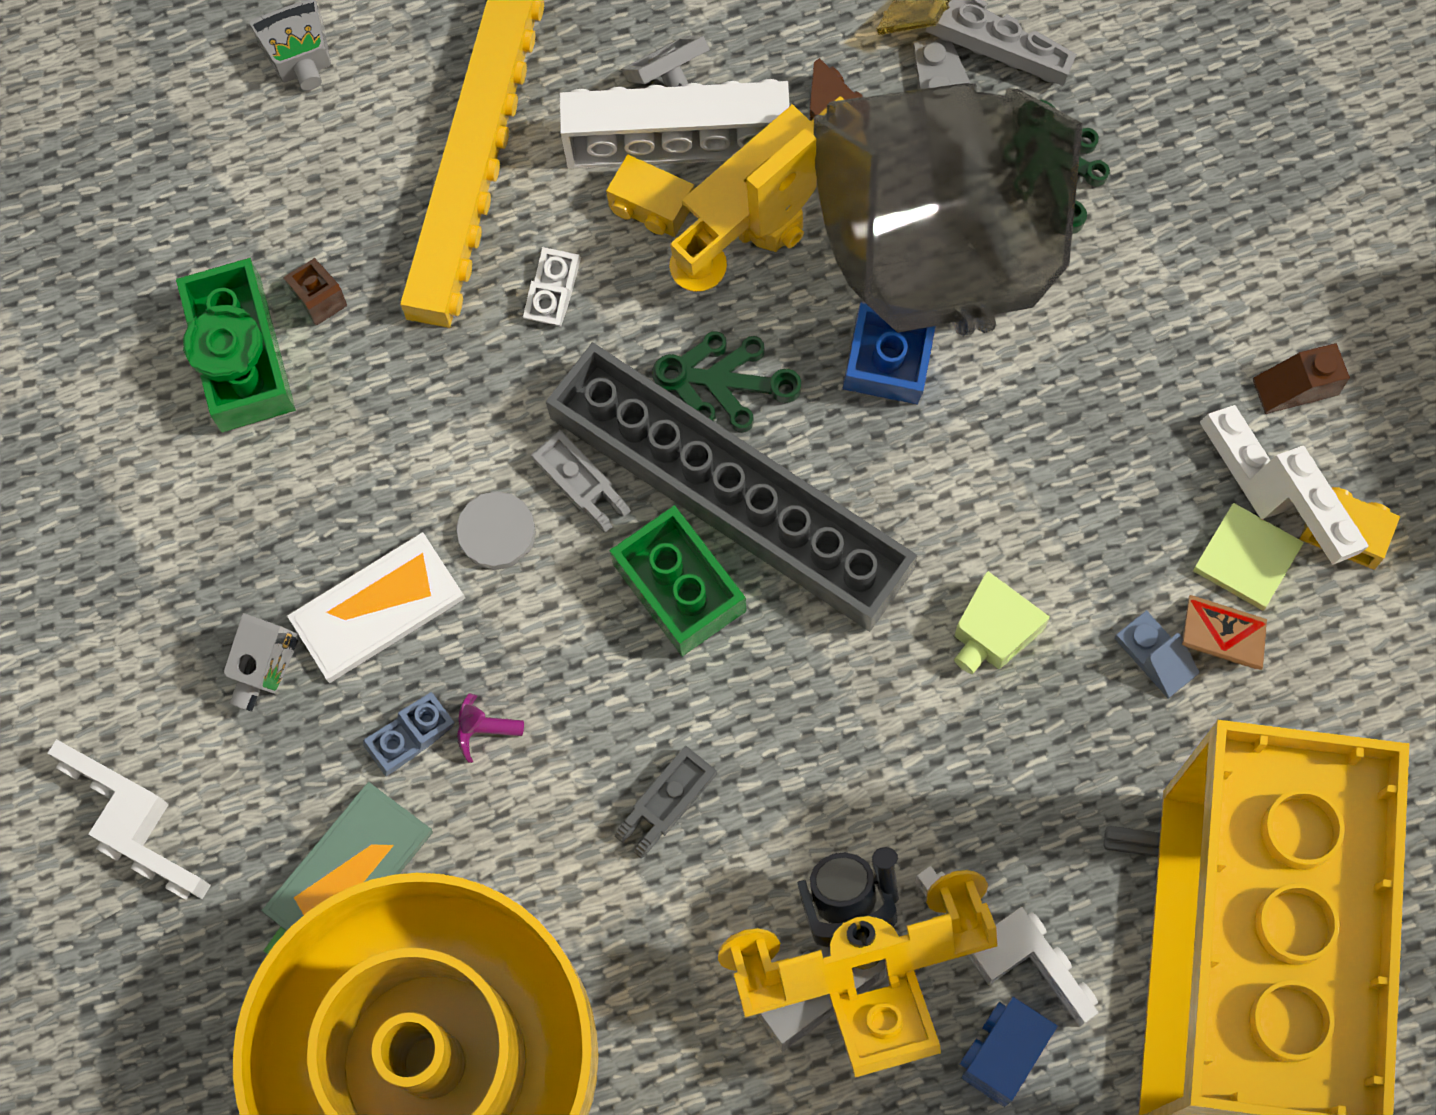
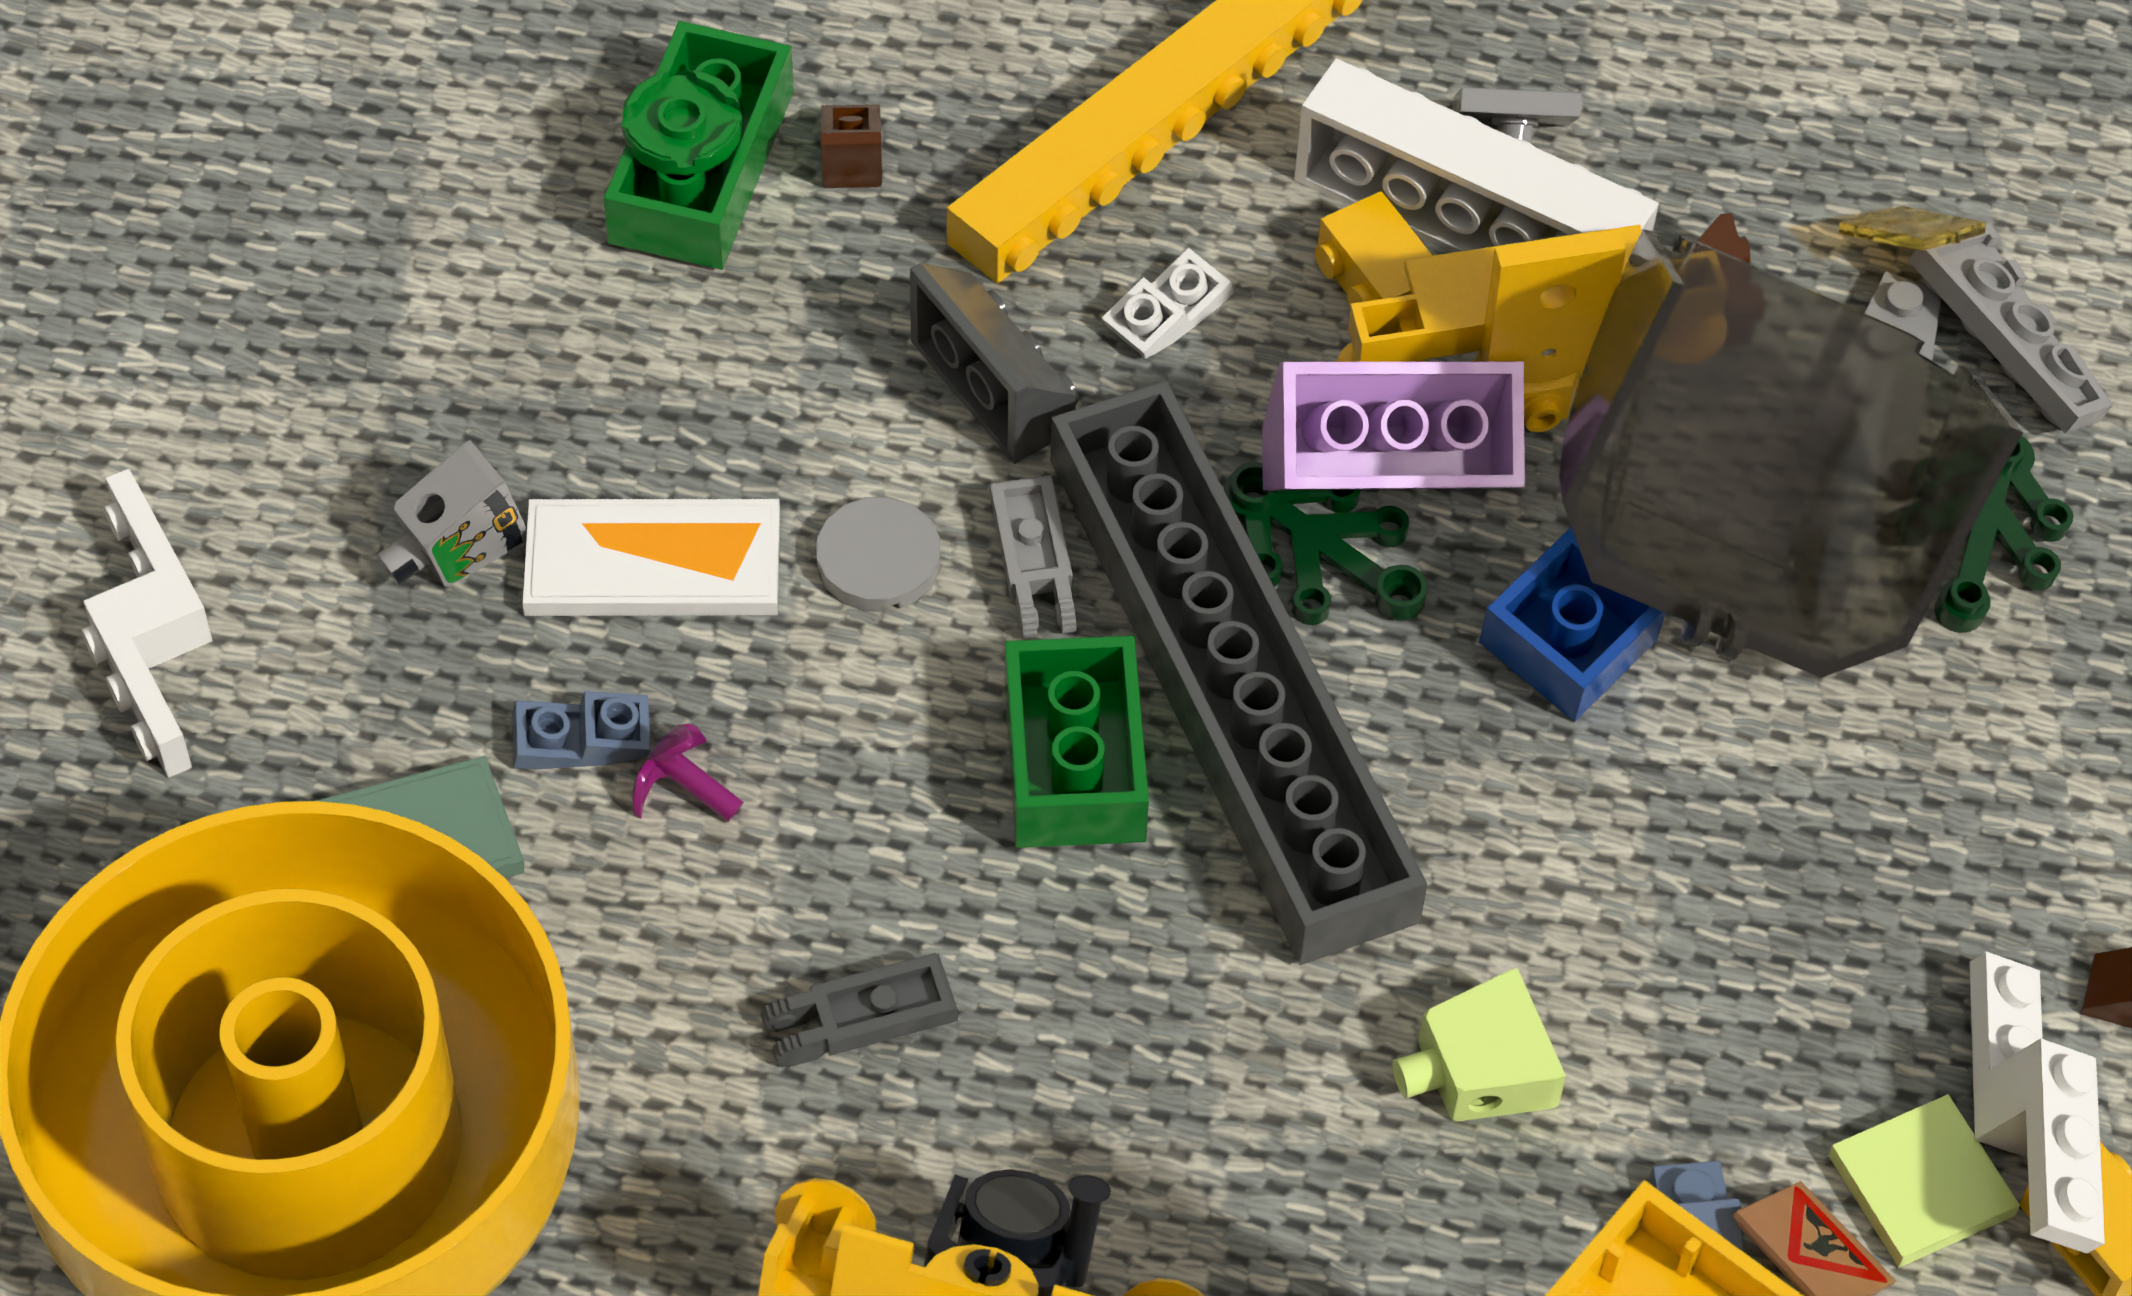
camera: 25 degrees right, 15 degrees down
(483, 381) = (987, 359): none -> dark grey slope
(732, 300) = (1395, 426): none -> lavender slope

